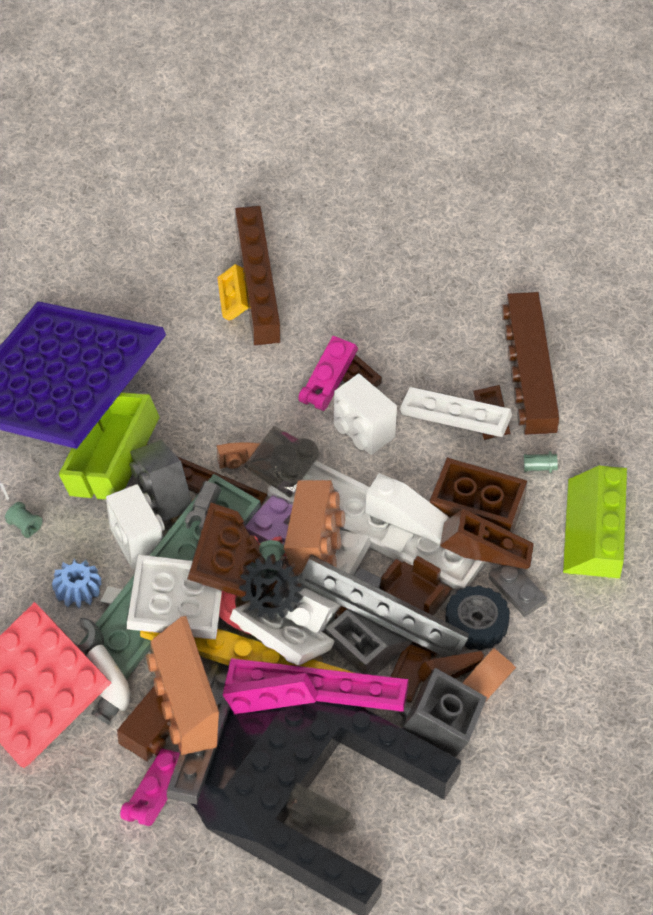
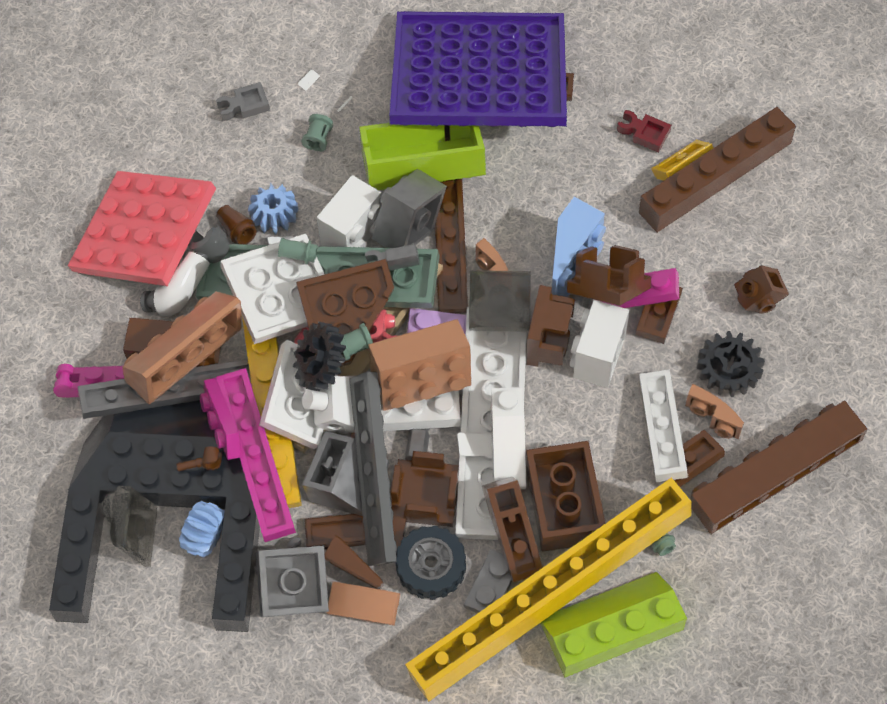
camera: 65 degrees right, 10 degrees up
(69, 617) = (237, 226): none -> reddish brown cone
(160, 558) = (298, 250): none -> sand green pin
(187, 301) = (647, 132): none -> dark red plate
(267, 392) = (577, 229): none -> light blue slope
(305, 716) = (211, 460): none -> reddish brown hand
(318, 374) = (613, 282): none -> reddish brown panel
(324, 431) = (549, 328): none -> reddish brown panel
(354, 761) = (202, 529): none -> light blue gear
(382, 289) = (761, 289): none -> reddish brown brick
(428, 349) = (746, 363): none -> black gear
(468, 374) = (724, 419): none -> nougat slope
(554, 546) = (549, 589): none -> yellow brick

